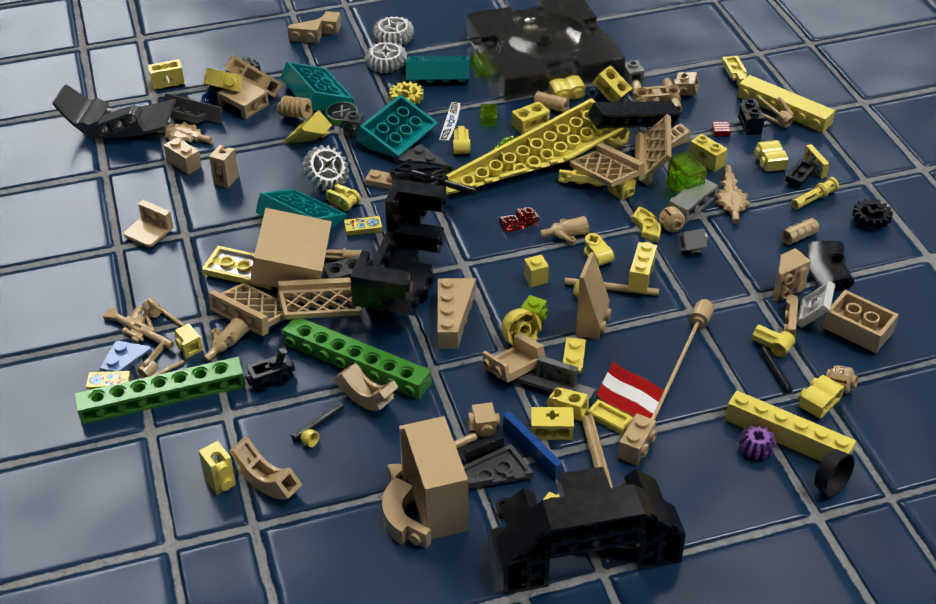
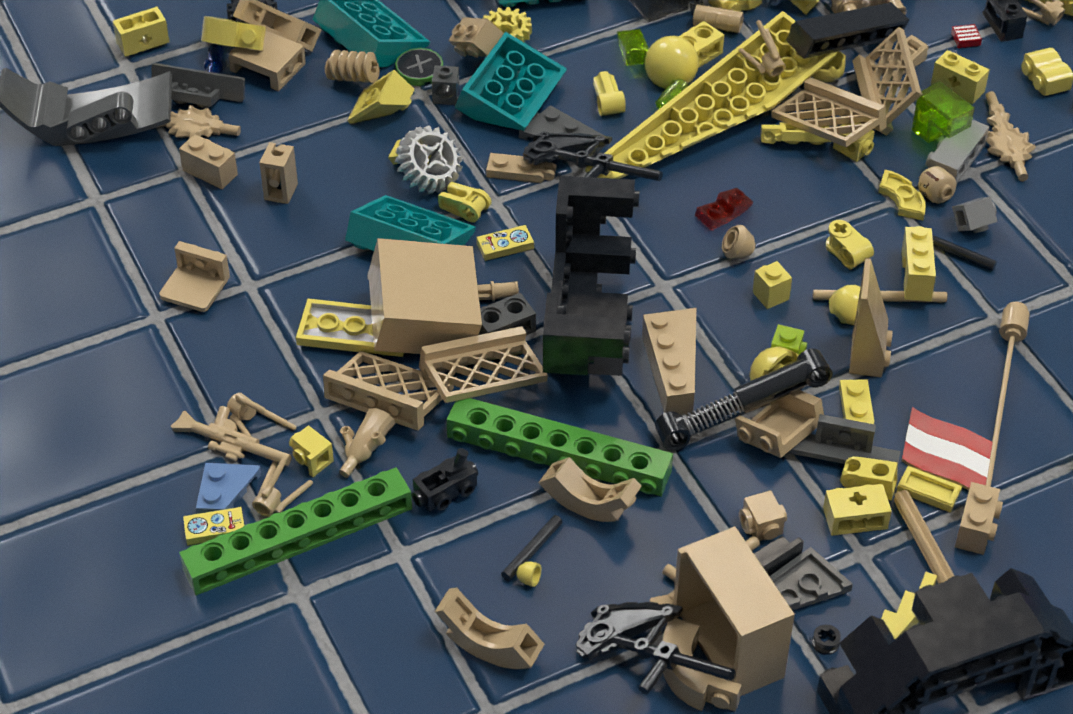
camera: 10 degrees left, 5 degrees up
(217, 472) = (420, 636): light yellow brick -> none
(363, 476) = (617, 624): none -> black bar
(380, 96) = (475, 37): none -> tan brick
(450, 121) = (580, 63): white sticker -> none
(509, 122) = (671, 60): none -> light yellow piece
(521, 241) = (738, 243): none -> tan cone
(532, 445) = (839, 544): blue tile -> none
(538, 325) = (807, 370): none -> black piece
(568, 228) = (799, 213): tan piece -> none
(574, 128) = (771, 61): none -> tan plant
(677, 264) = (964, 253): none -> black bar

